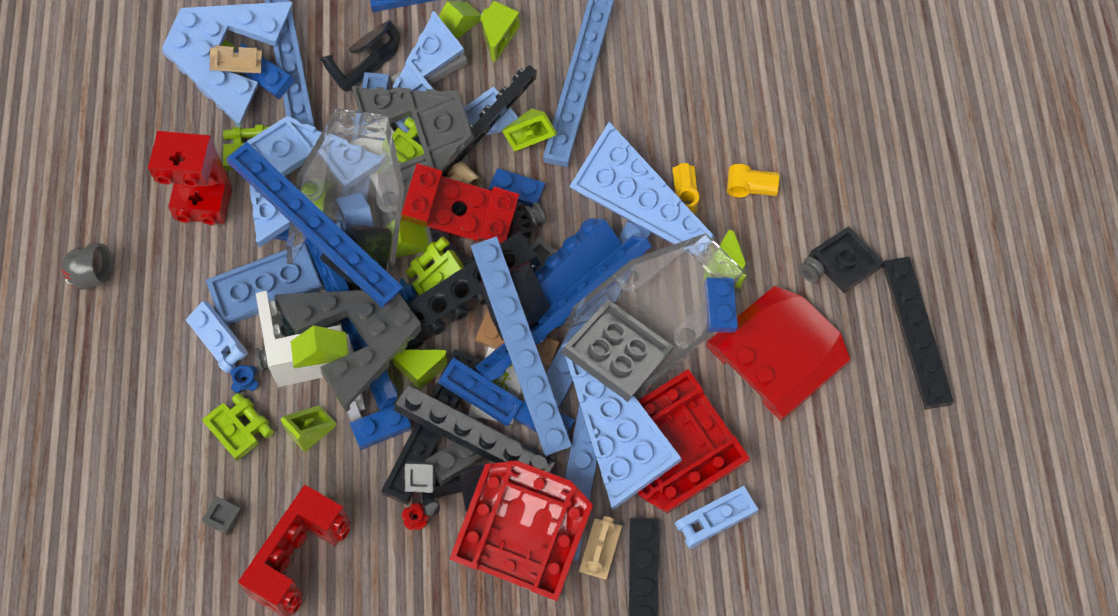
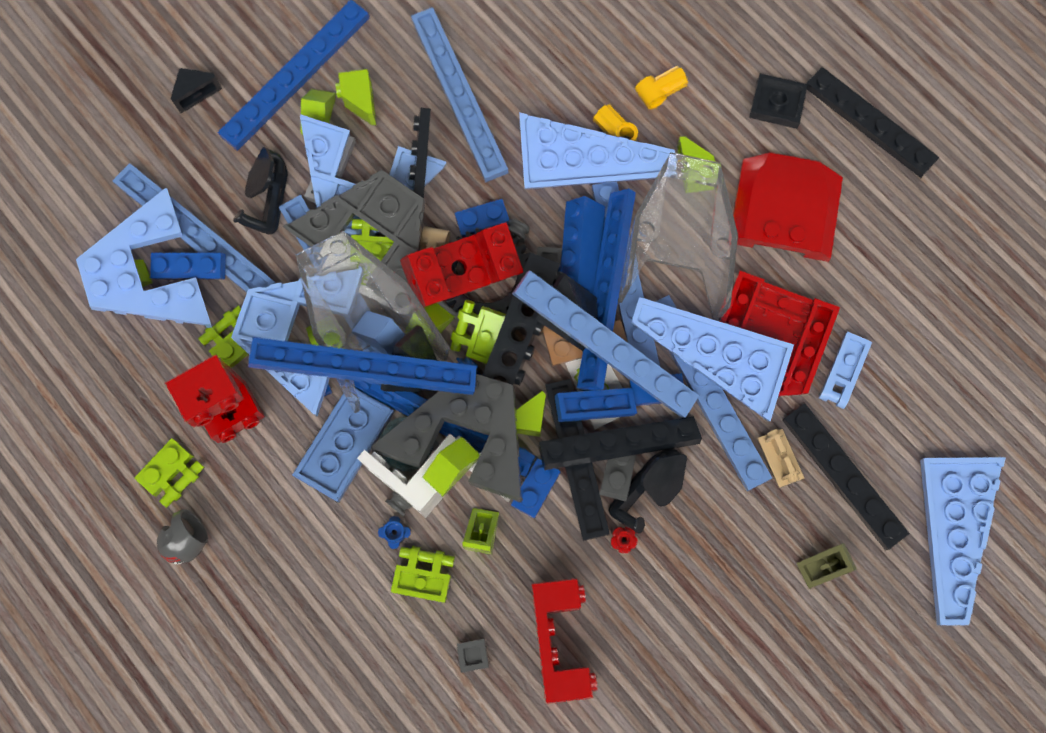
camera: 35 degrees left, 10 degrees up
(118, 209) = (164, 467): none -> lime plate
(216, 336) = (342, 514): light blue plate -> none
(246, 60) = (159, 275): tan hinge -> none
(420, 476) = (608, 507): plate -> none
(523, 527) = (721, 486): red wedge -> none
(529, 129) = (456, 162): lime slope -> none
(617, 350) = (680, 294): plate -> none
(720, 304) = (729, 202): blue plate -> none
(811, 269) = (760, 126): dark grey bush -> none

